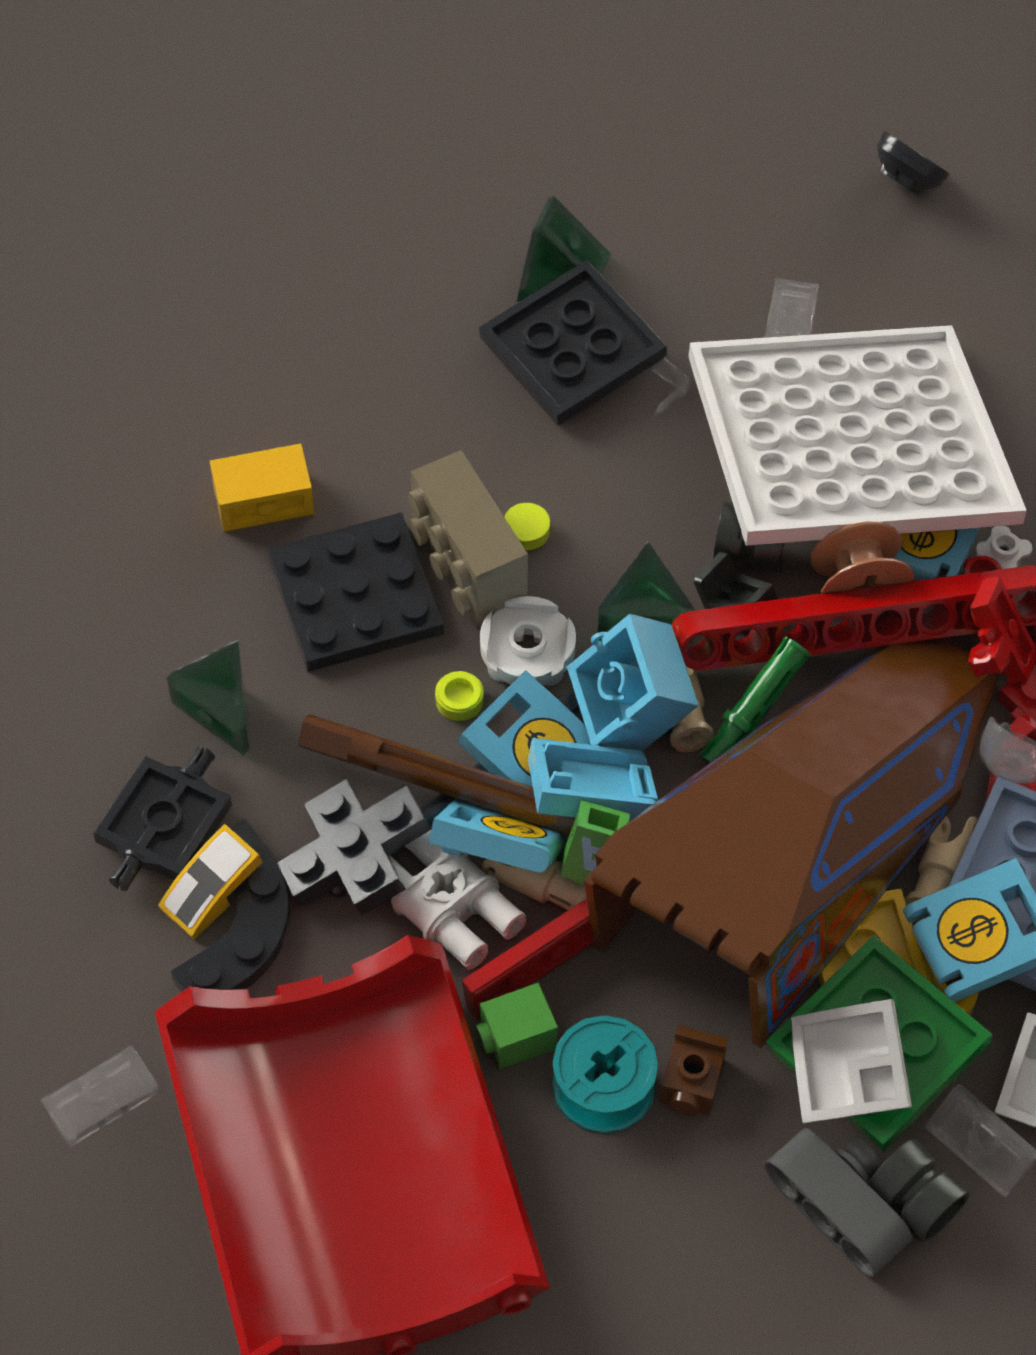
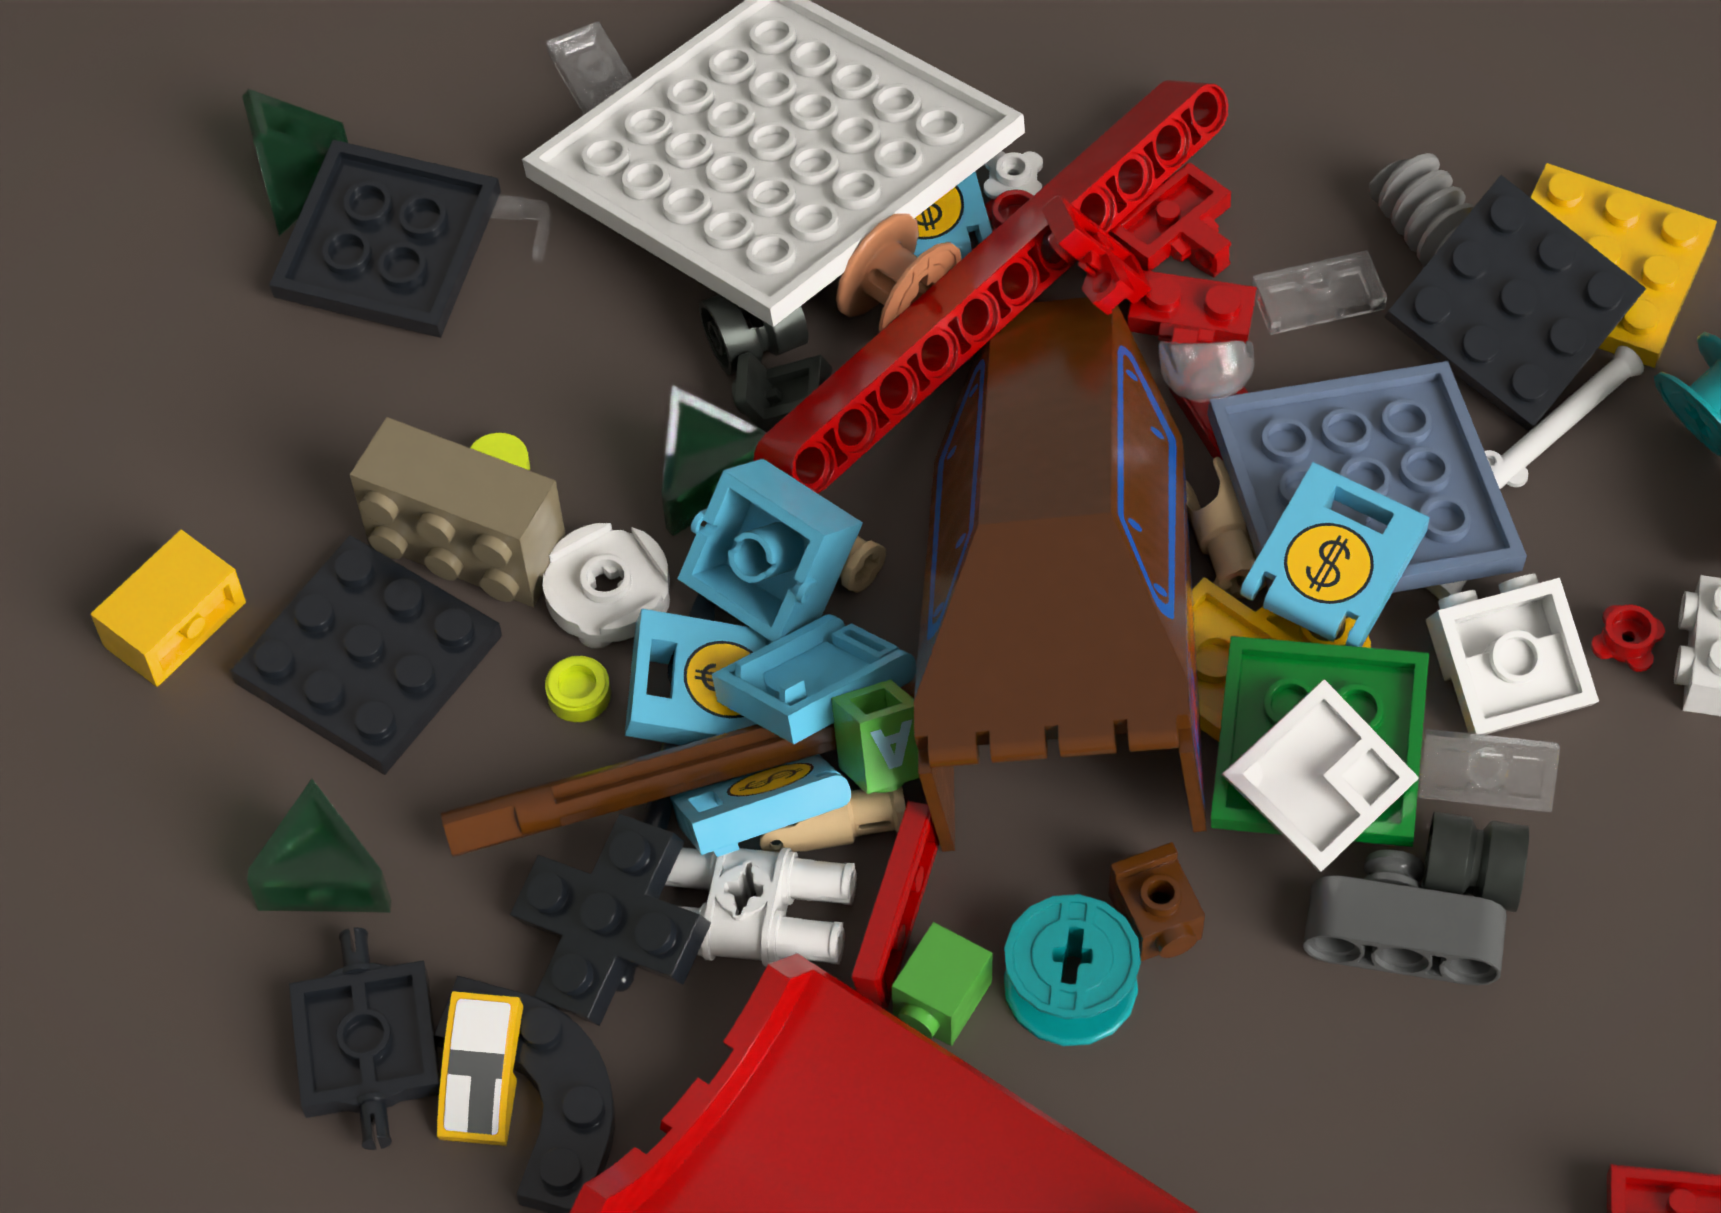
camera: 35 degrees left, 0 degrees up
(757, 699) = (906, 500): green pin -> none

